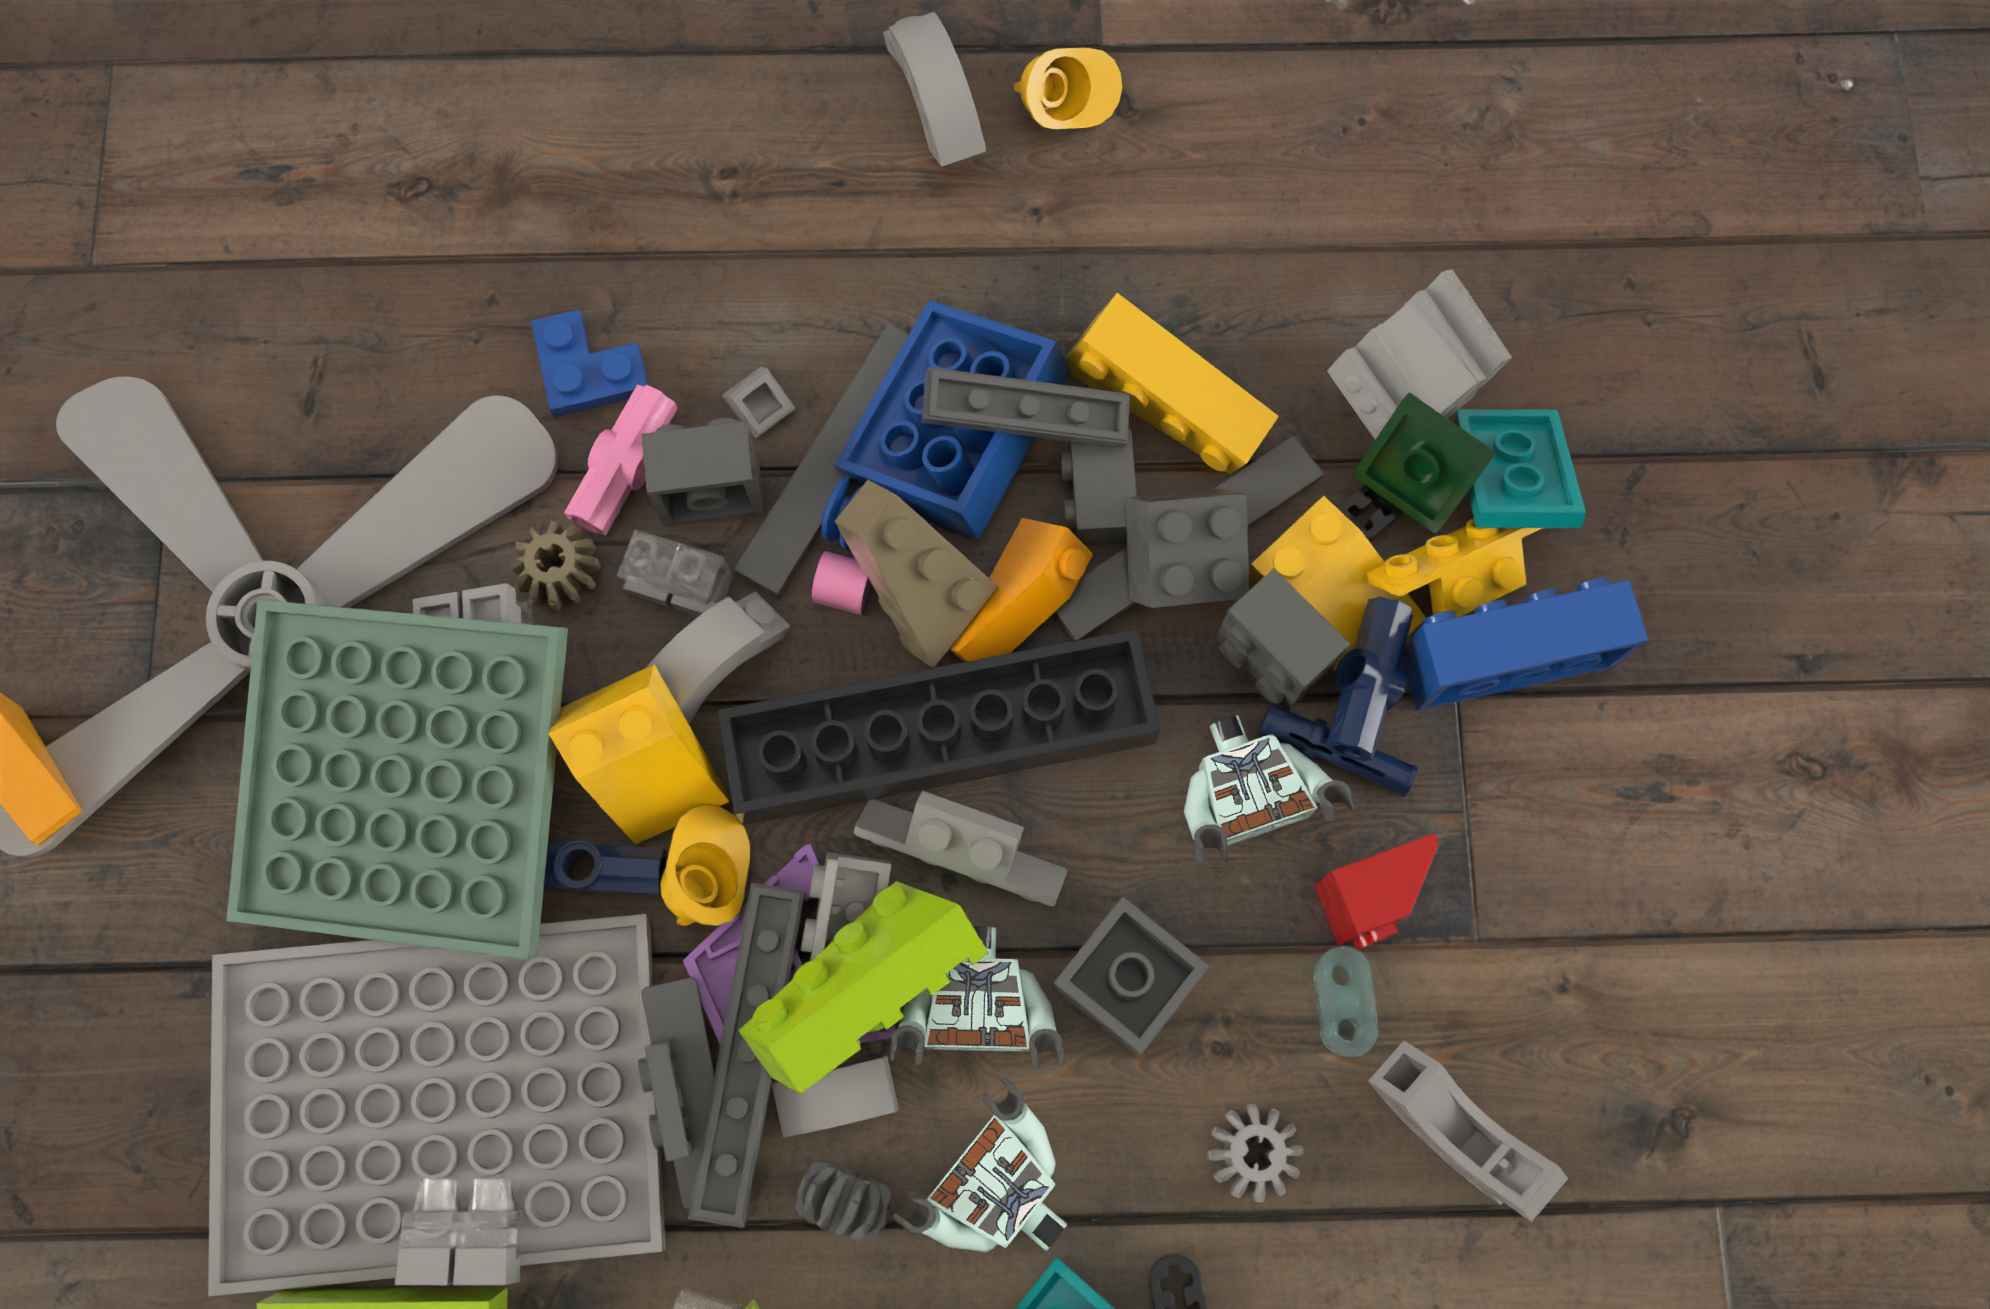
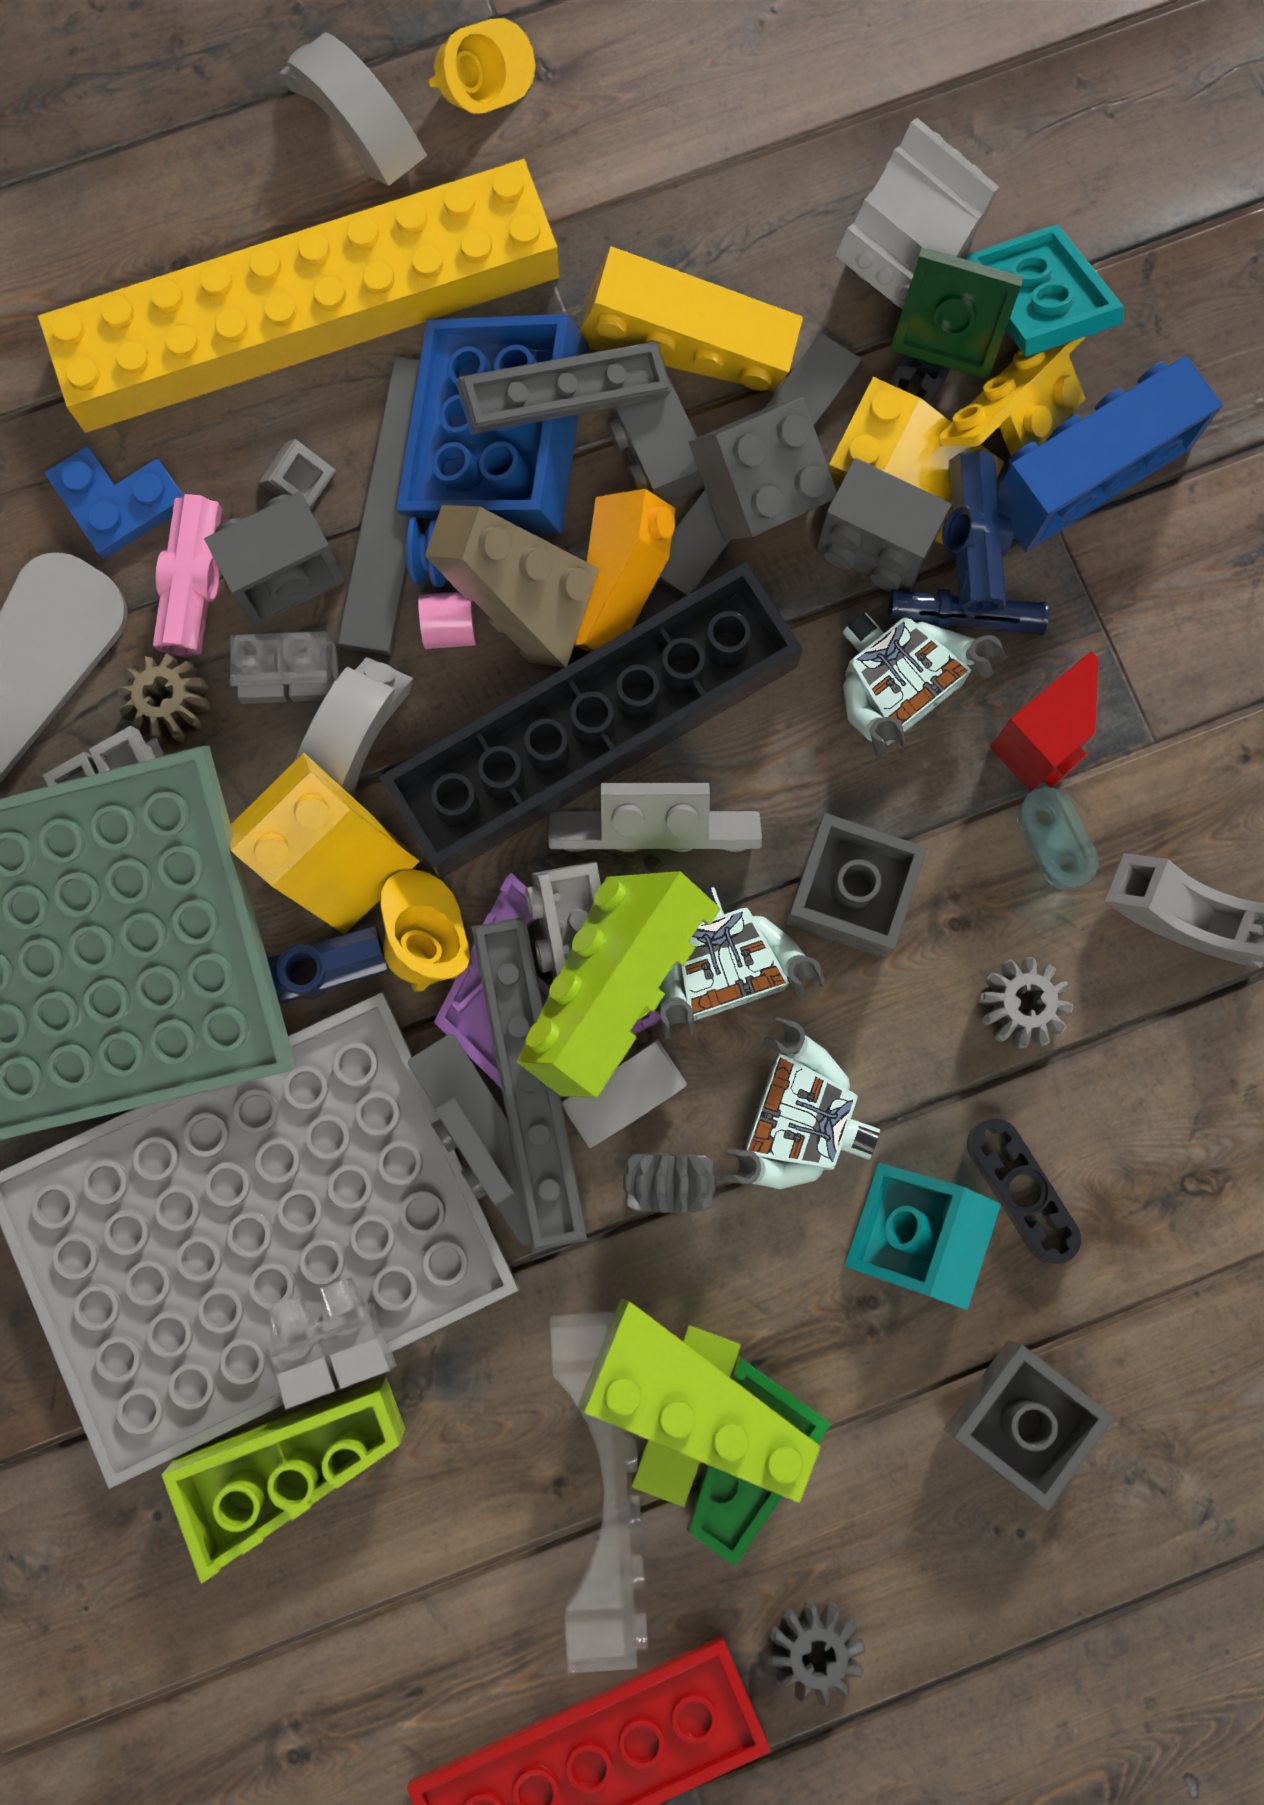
camera: 20 degrees left, 5 degrees up
(823, 240) = (300, 296): none -> yellow brick

